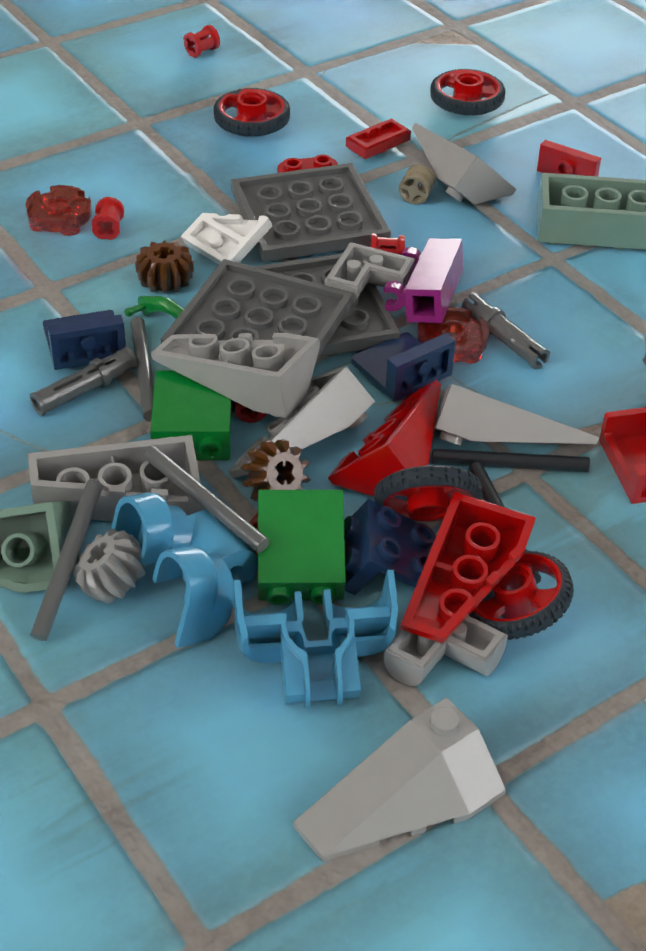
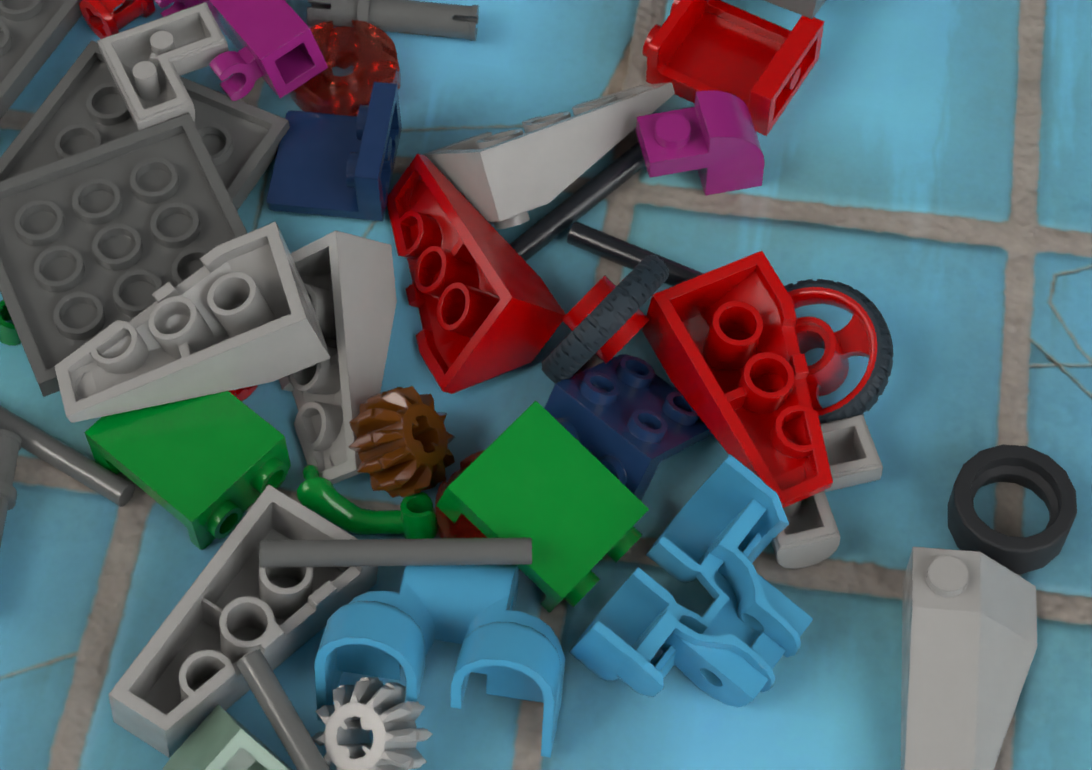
camera: 45 degrees left, 15 degrees up
(219, 472) = (413, 519): none -> green piece
(529, 771) = (1027, 469): none -> black tyre
(591, 469) = (710, 138): none -> magenta brick

